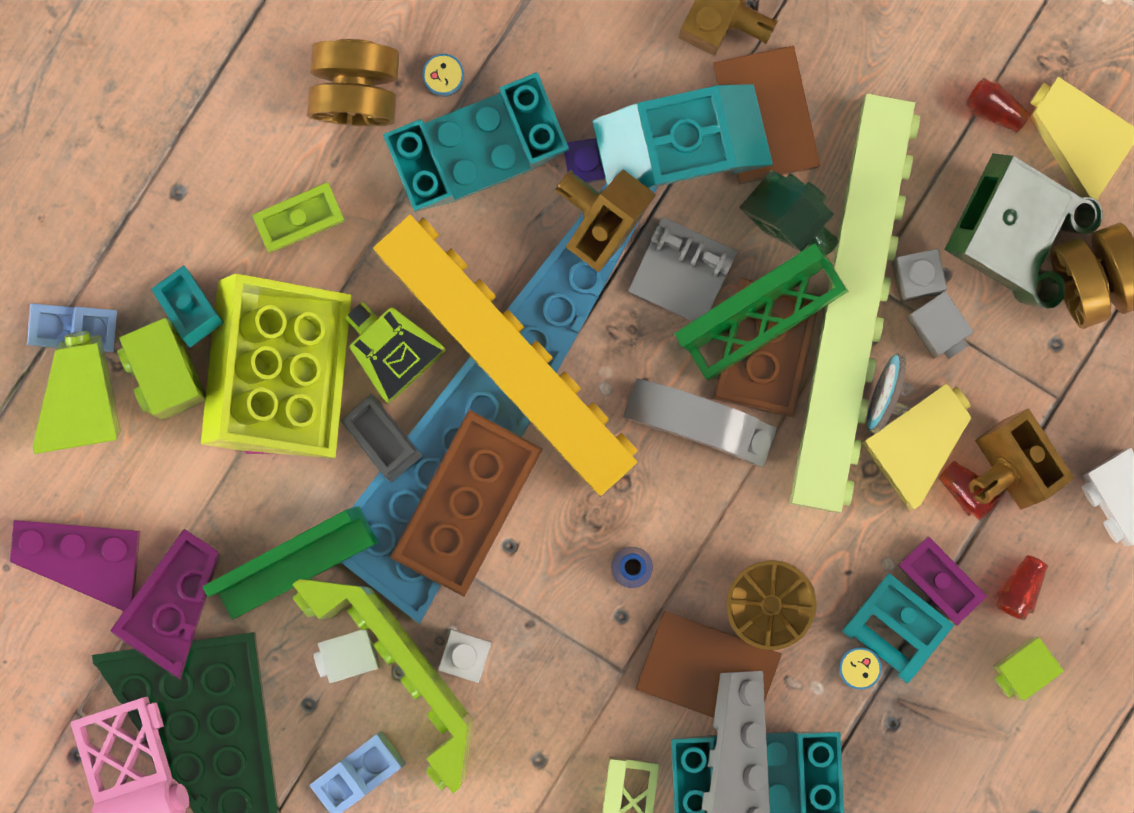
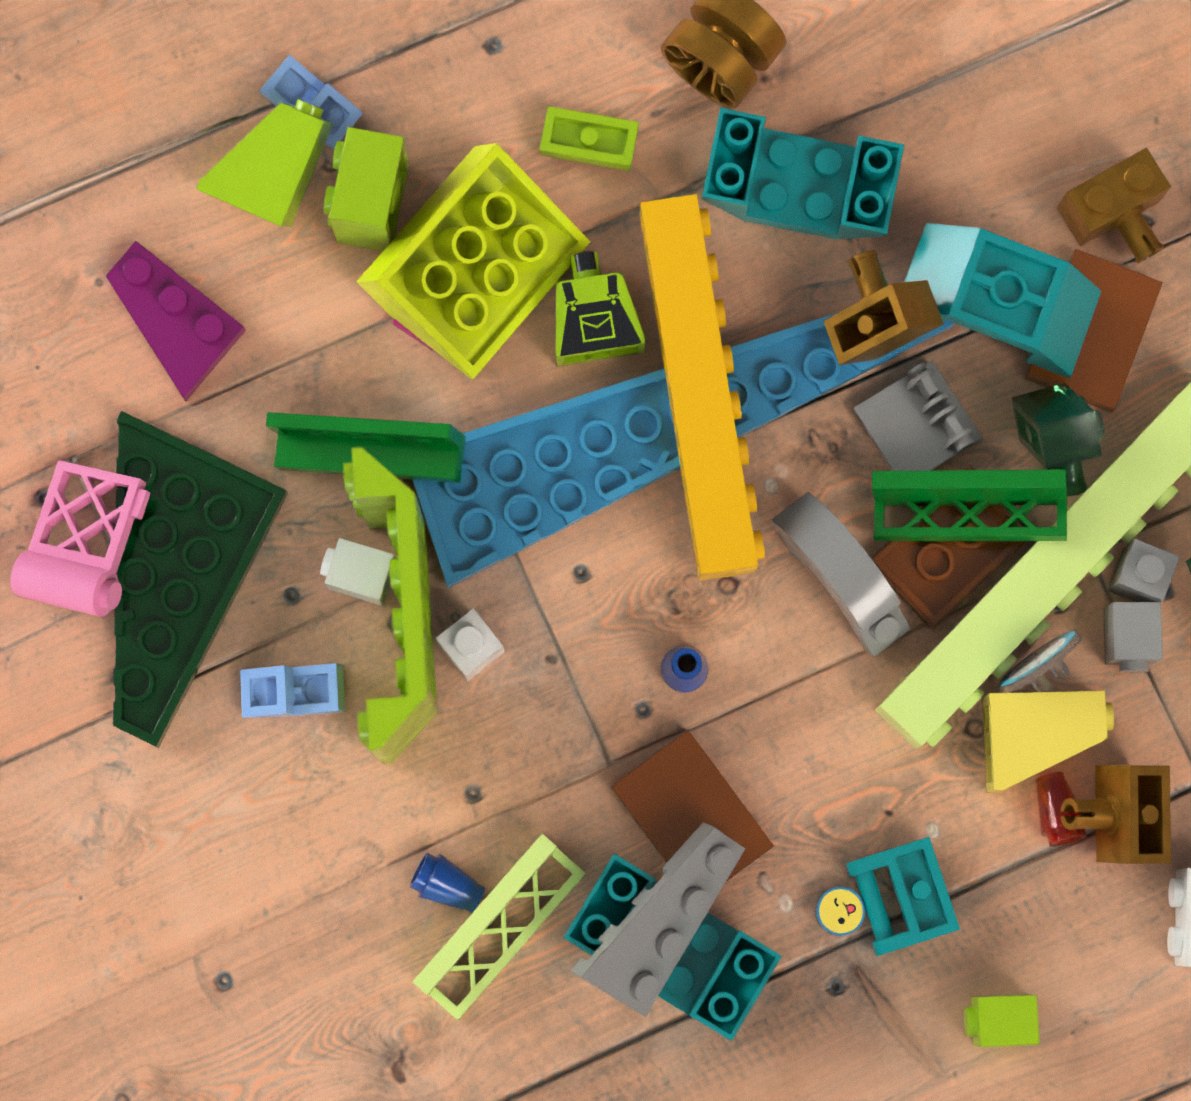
camera: 30 degrees right, 5 degrees down
(170, 604) = (225, 412): magenta wing -> none
(187, 306) = (430, 148): teal plate -> none
(381, 438) = (529, 389): dark grey tile -> none
(443, 75) = (812, 97): light yellow tile -> none
(466, 503) = (568, 501): dark orange tile -> none
(585, 160) = (895, 257): dark purple plate -> none
(771, 605) = (796, 789): pearl gold wheel -> none
(942, 580) = (975, 879): magenta plate -> none
(1022, 589) = (1047, 940): clear red cone -> none

